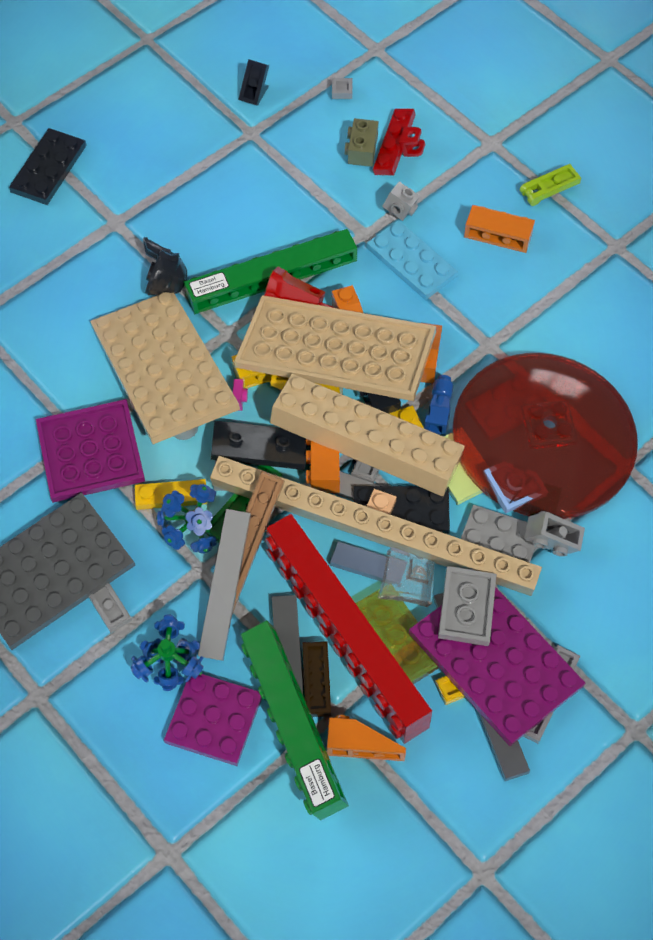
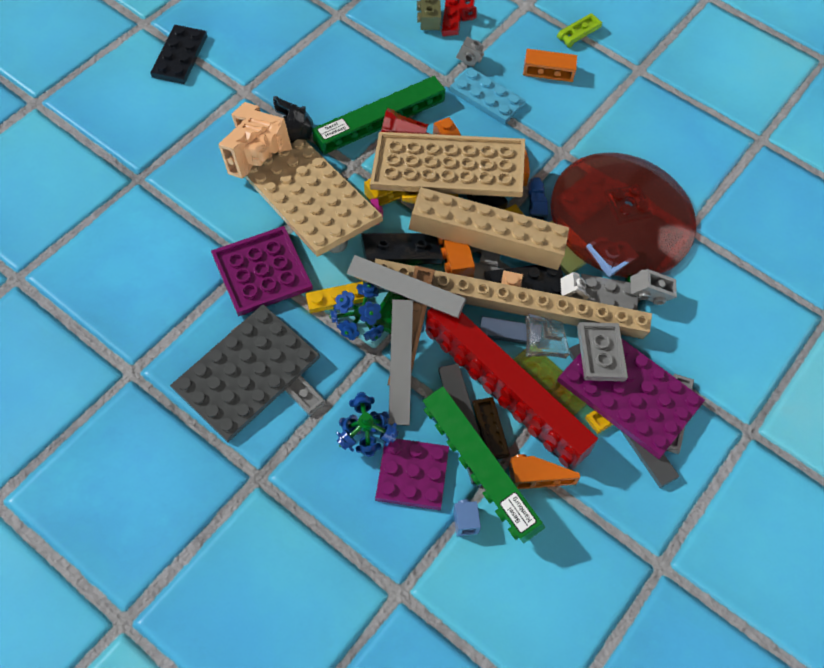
camera: 15 degrees left, 0 degrees up
(108, 290) = (253, 139): none -> light nougat brick
(246, 495) = (406, 286): none -> light grey tile
(262, 779) = (466, 517): none -> medium blue brick
(457, 518) = (574, 286): none -> white brick

